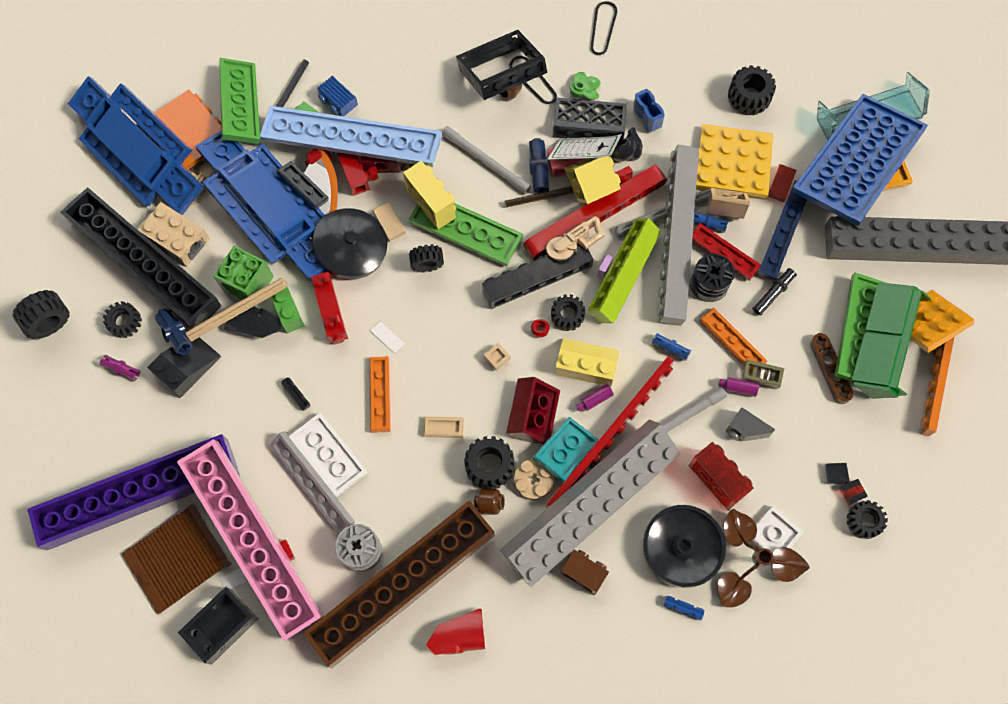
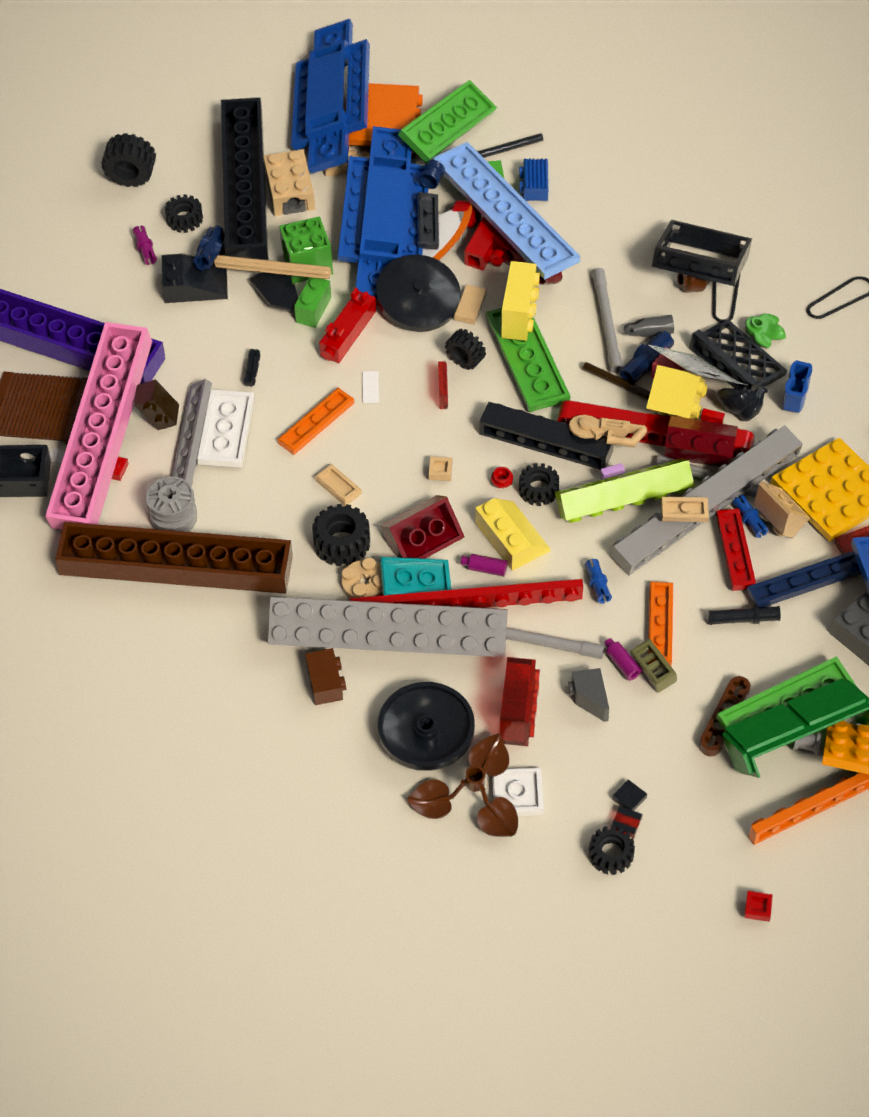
camera: 45 degrees right, 15 degrees down
(268, 484) = (156, 404): none -> dark brown brick
(274, 151) = (432, 173): none -> dark blue wheel
(434, 294) = (443, 384): none -> clear red tile
(458, 635) = (175, 633): red panel -> none
(489, 502) = (309, 563): reddish brown head -> none
(518, 141) = (650, 326): none -> dark grey piece
(638, 196) = (700, 441): none -> dark red slope
(682, 254) = (684, 509): none -> tan plate
(684, 607) = (374, 774): blue axle -> none
(712, 277) = (695, 555): black wheel -> none
(977, 474) = (758, 906): none -> red plate

